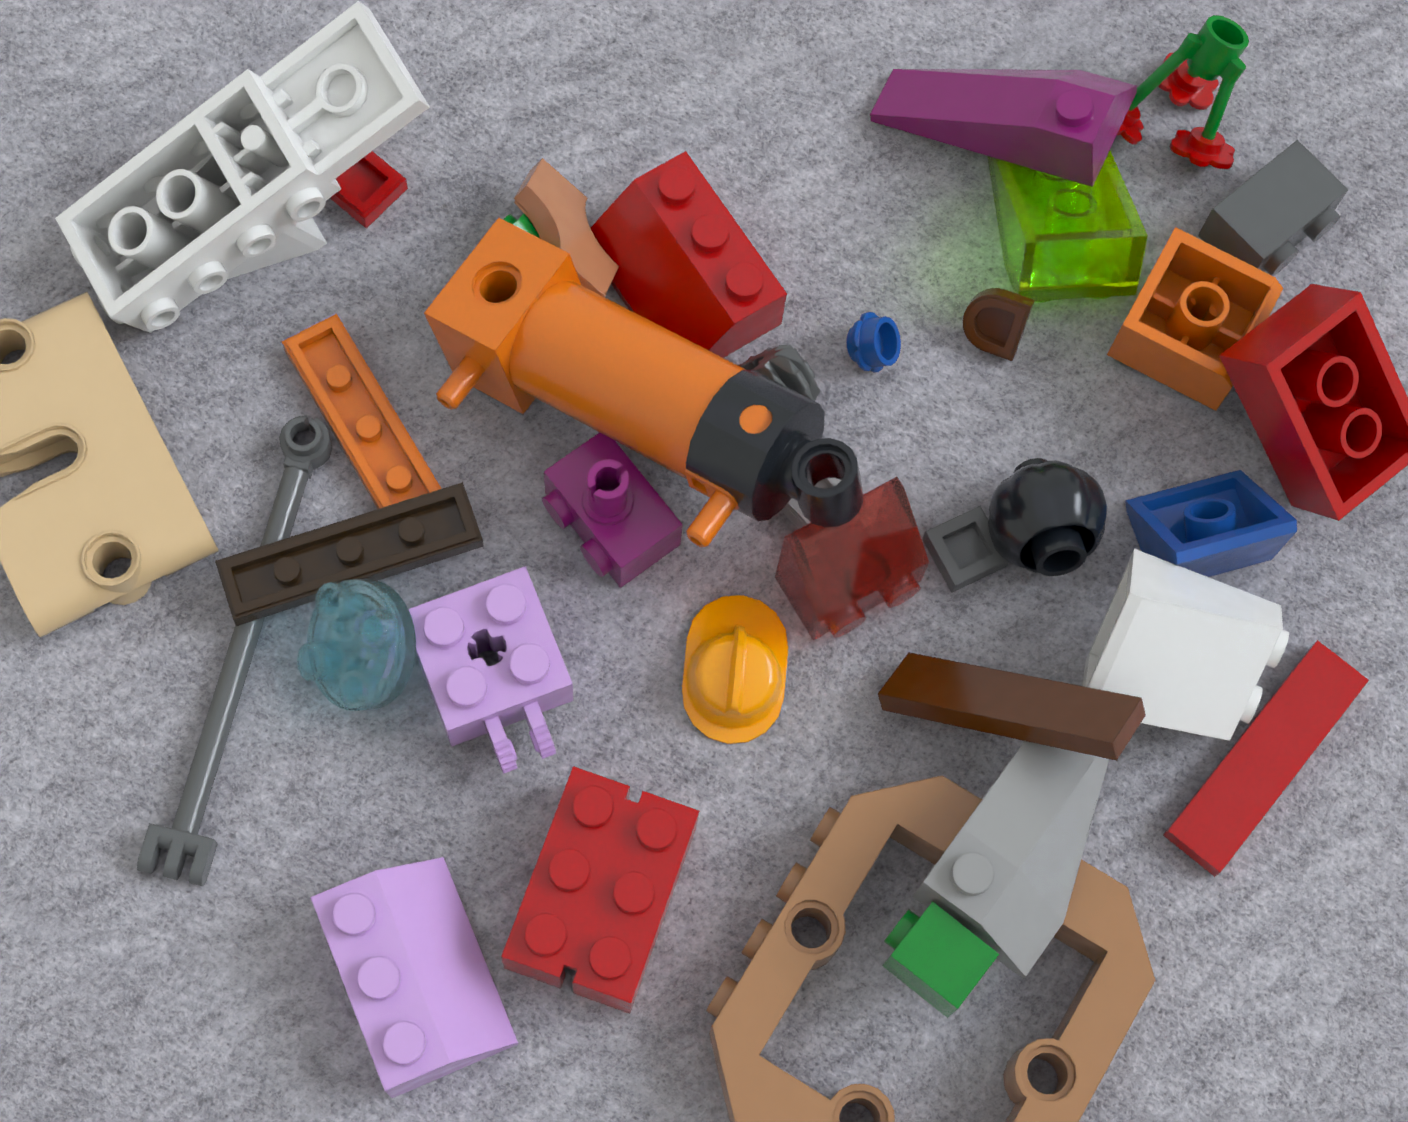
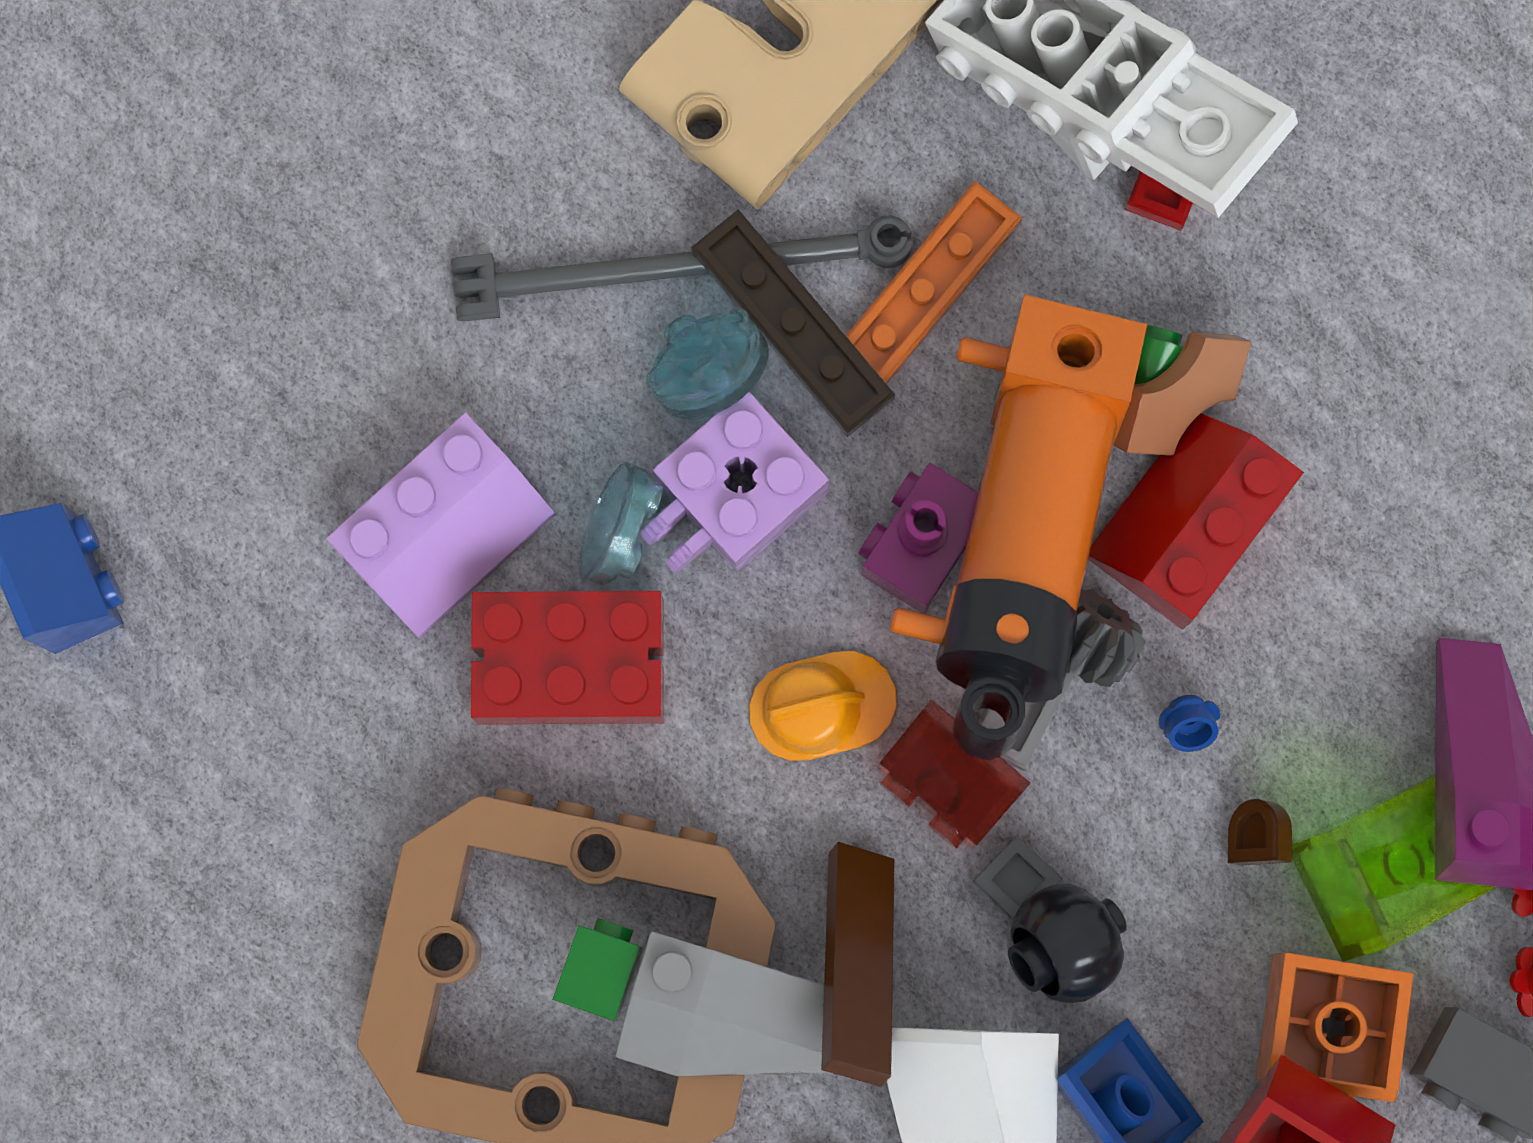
camera: 80 degrees right, 10 degrees up
(487, 789) = (611, 533): none -> clear light blue tile

